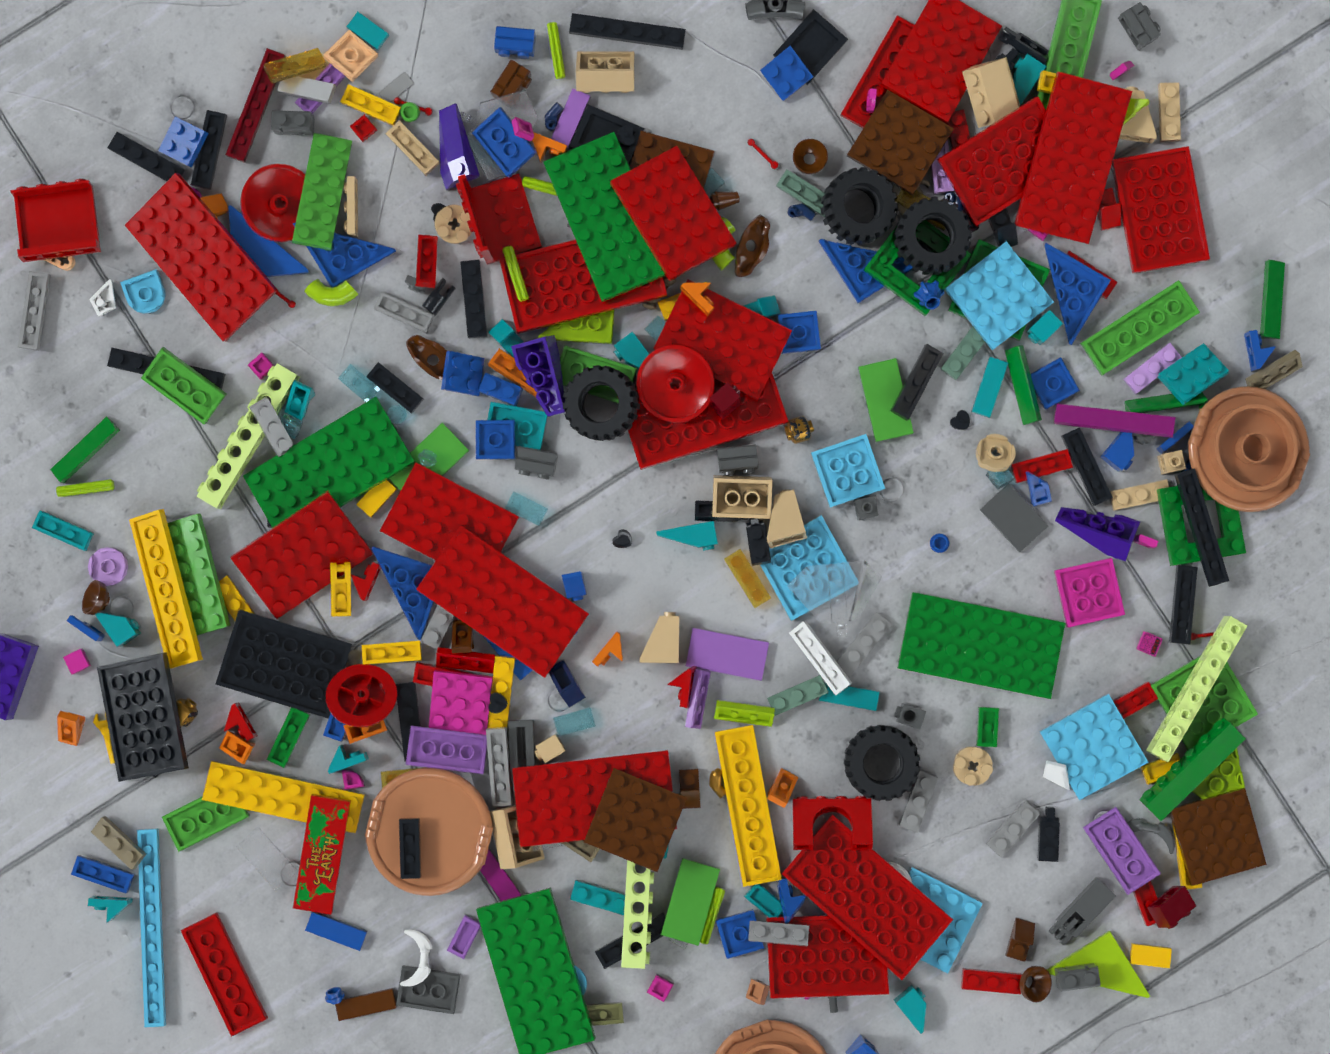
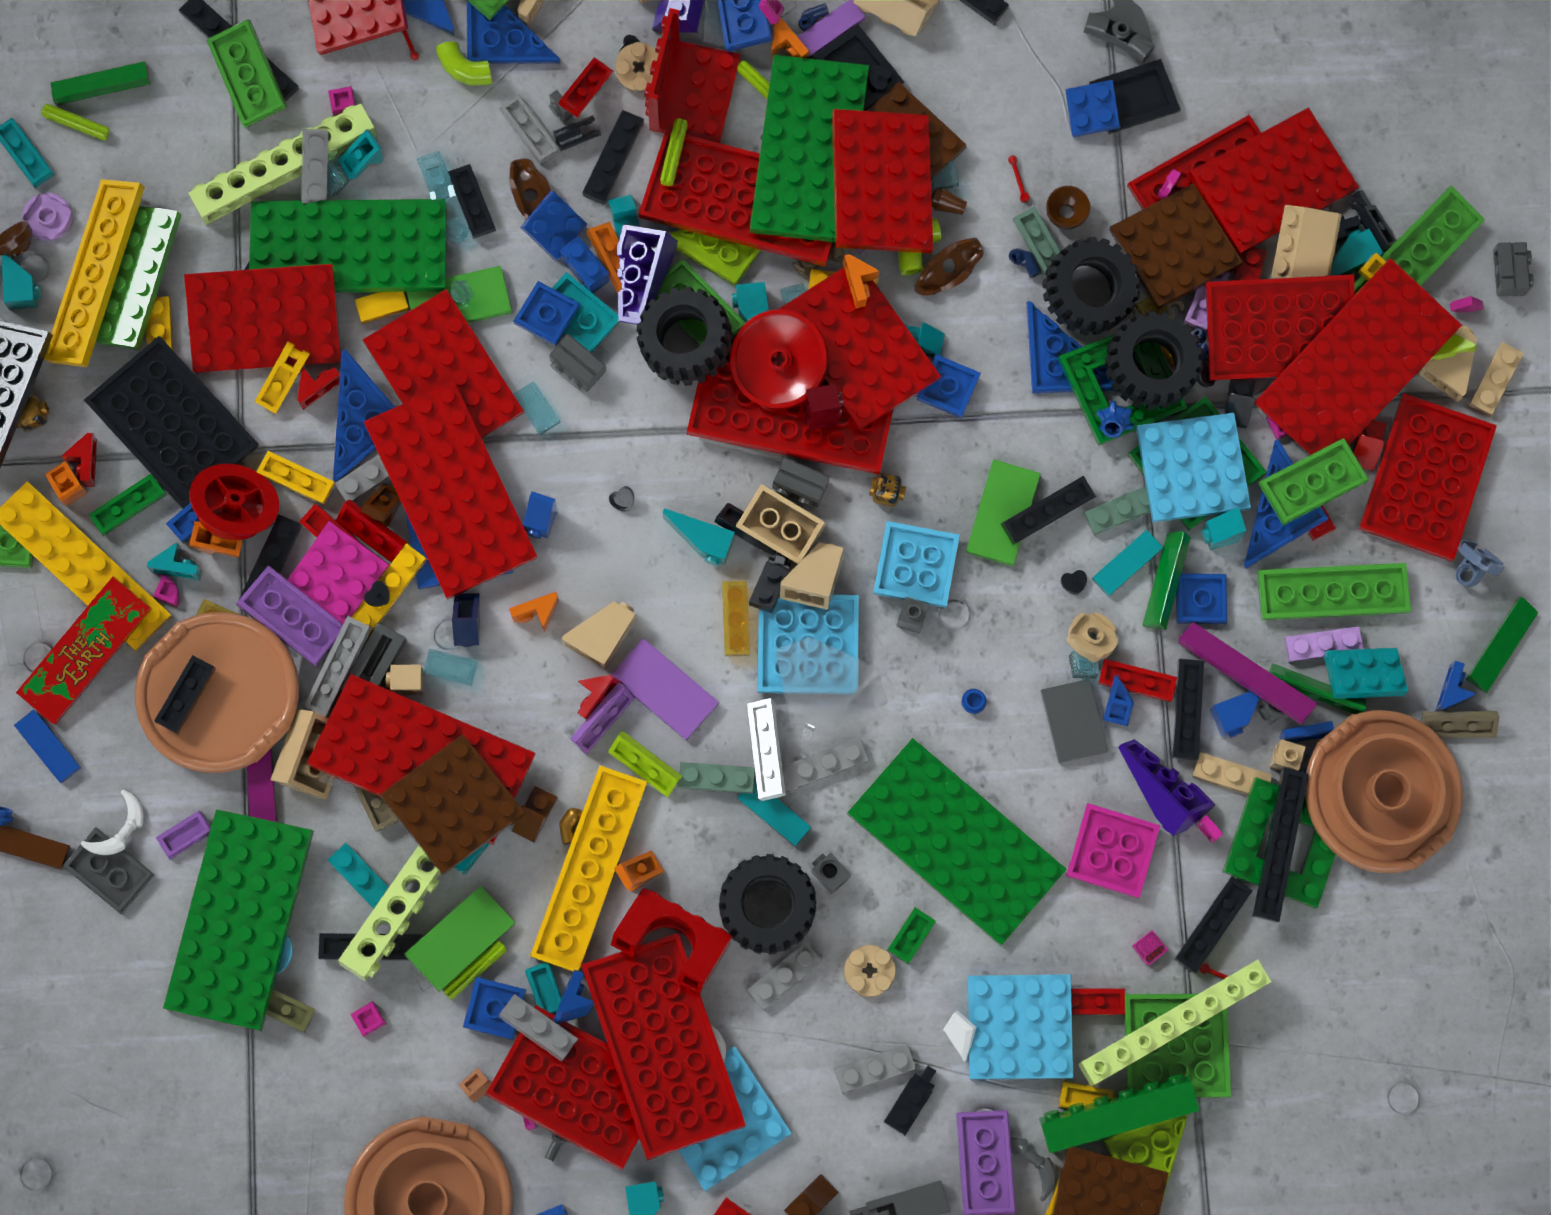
camera: 20 degrees right, 10 degrees down
(1087, 260) = (1313, 481): none -> bright green tile
(1227, 250) = (1478, 561): none -> sand blue tile

